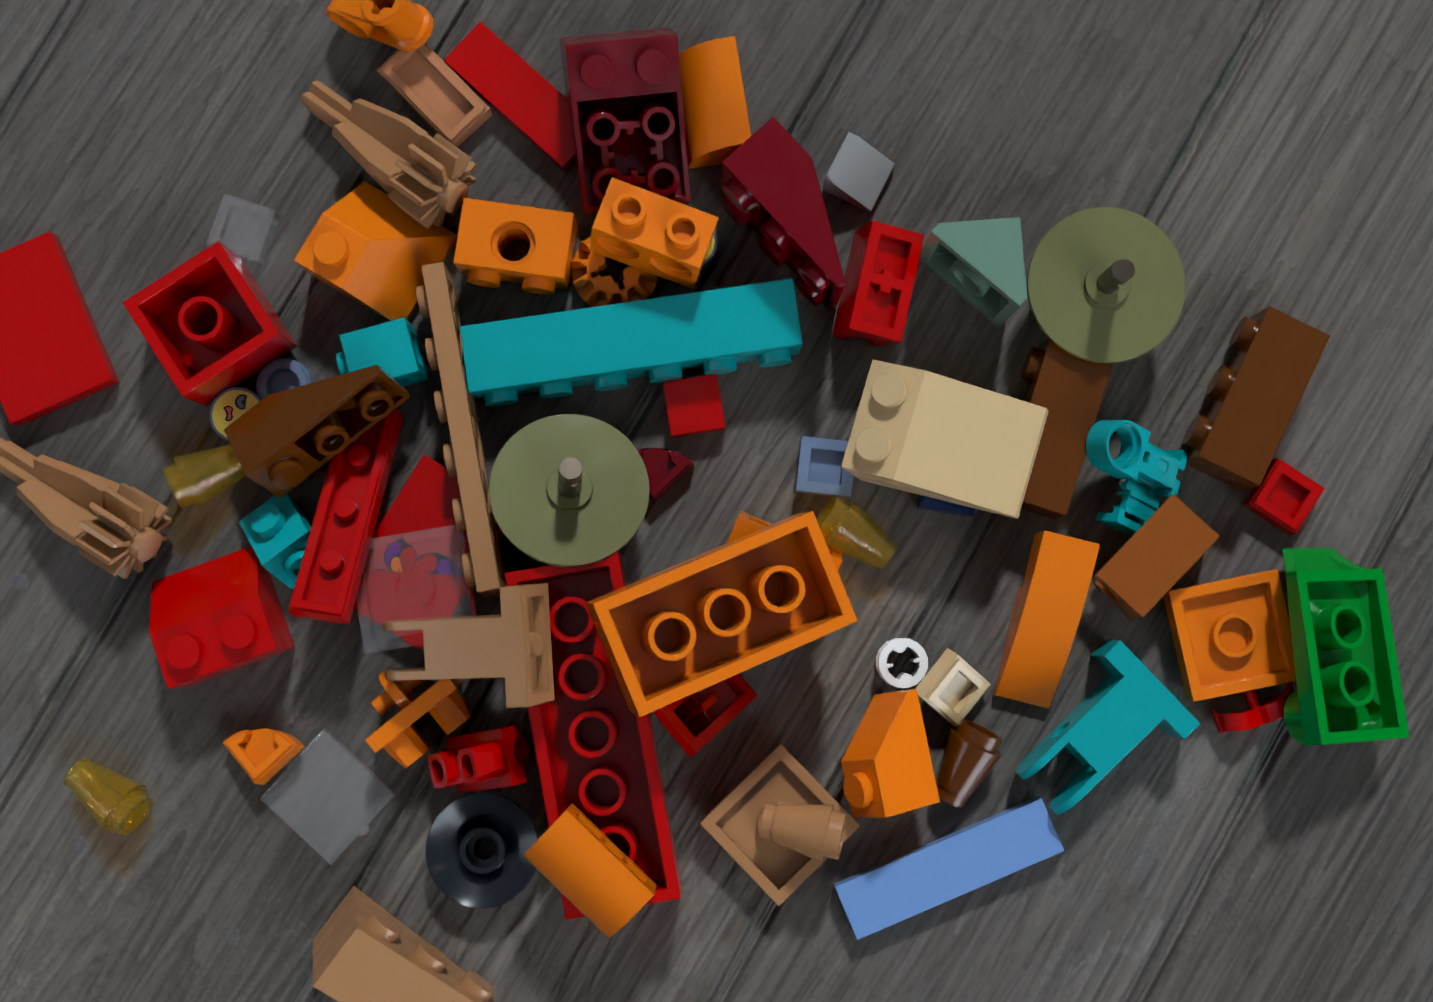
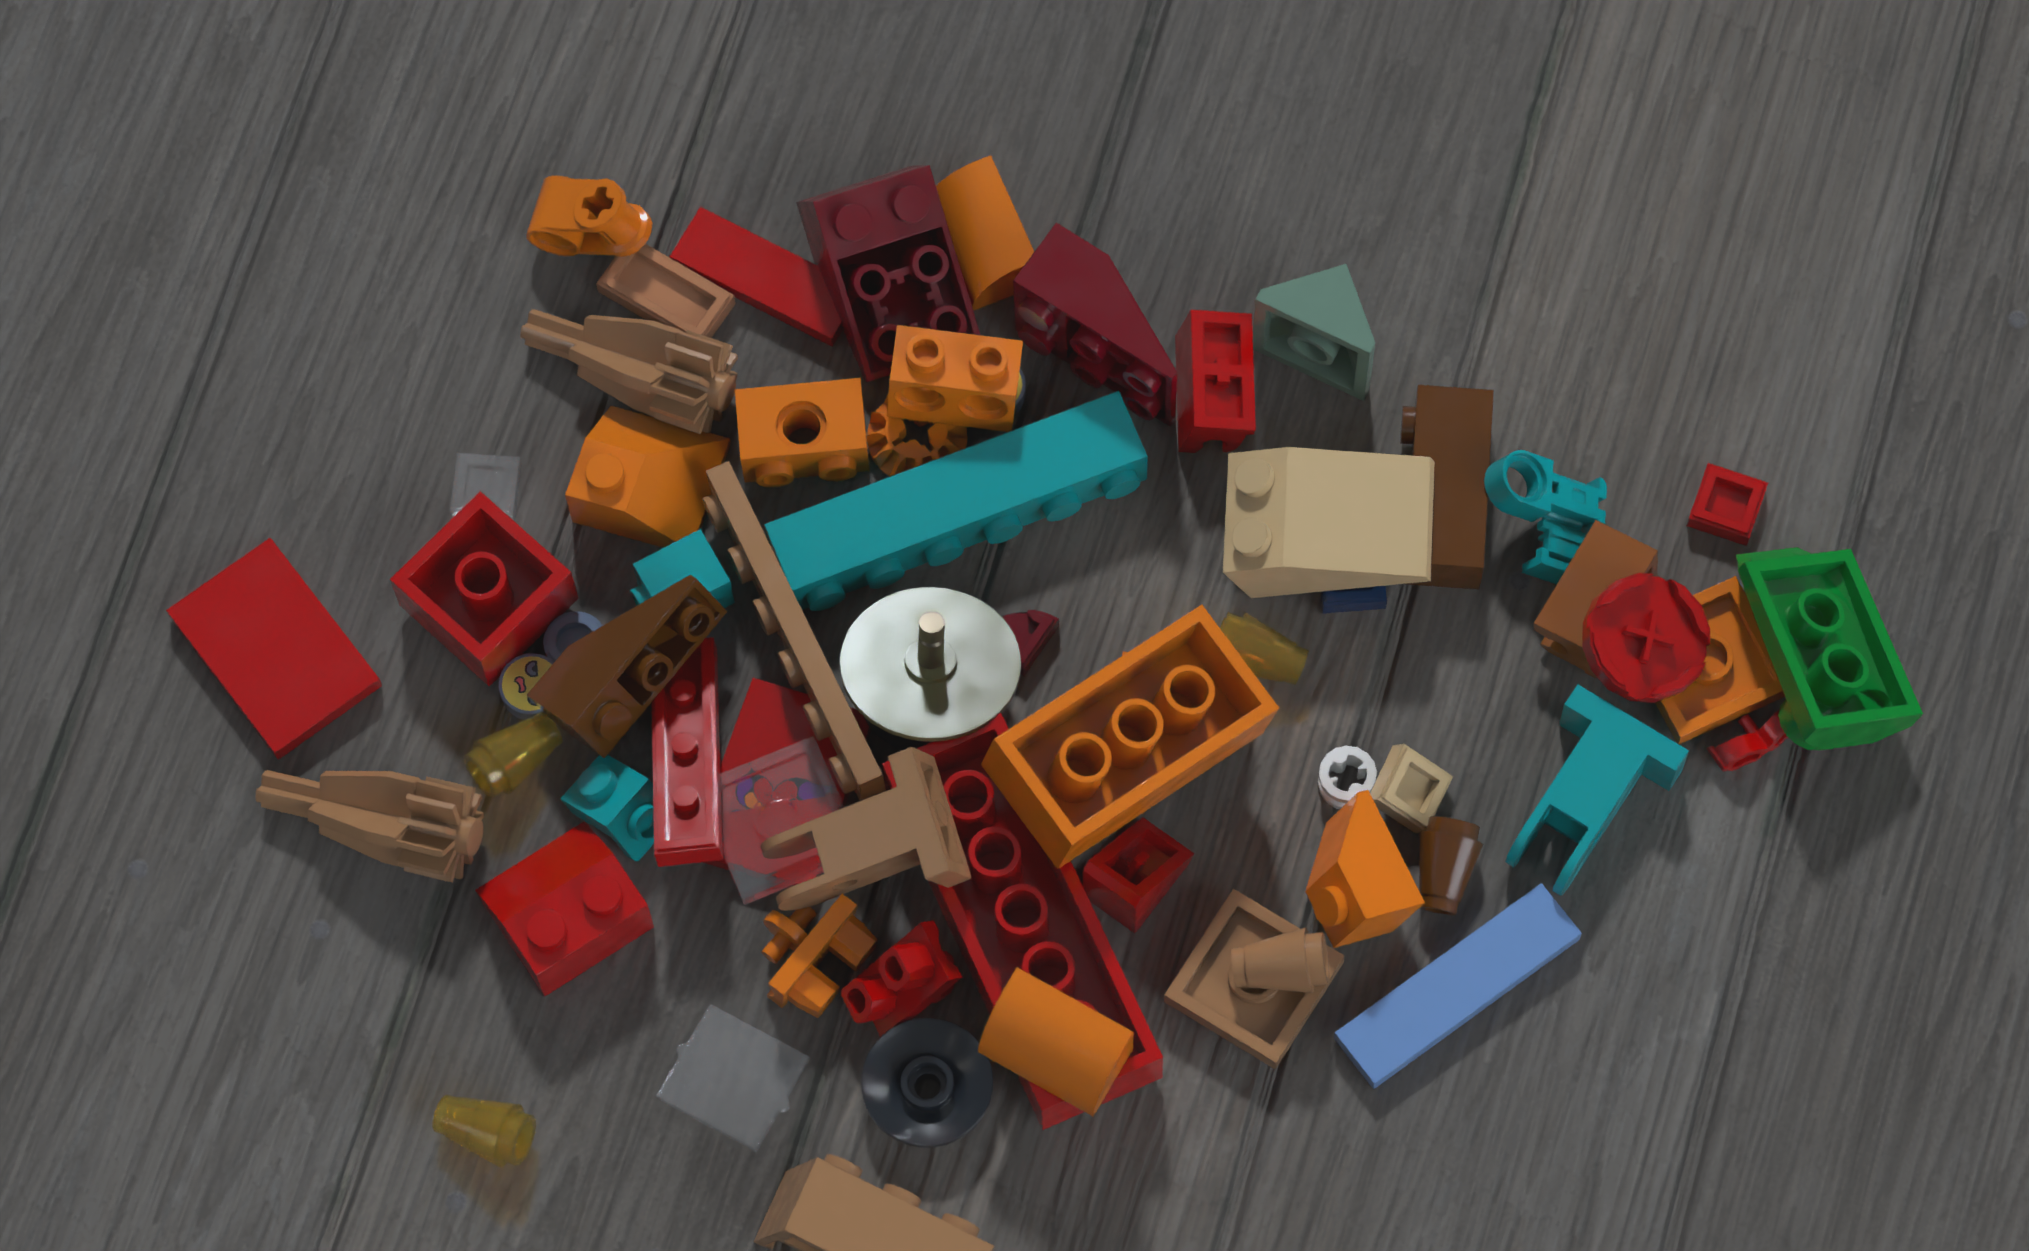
camera: 10 degrees left, 15 degrees down
(262, 751) = (649, 1040): orange tile -> none
(694, 405) = (1043, 559): red tile -> none
(820, 468) = (1203, 583): sand blue tile -> none
(858, 173) = (1163, 271): light grey slope -> none
(1045, 618) = (1493, 689): orange slope -> none
(1106, 285) = (1462, 318): olive piece -> none
(1190, 613) = (1645, 637): none -> red tile
(1254, 397) = (1660, 405): reddish brown brick -> none

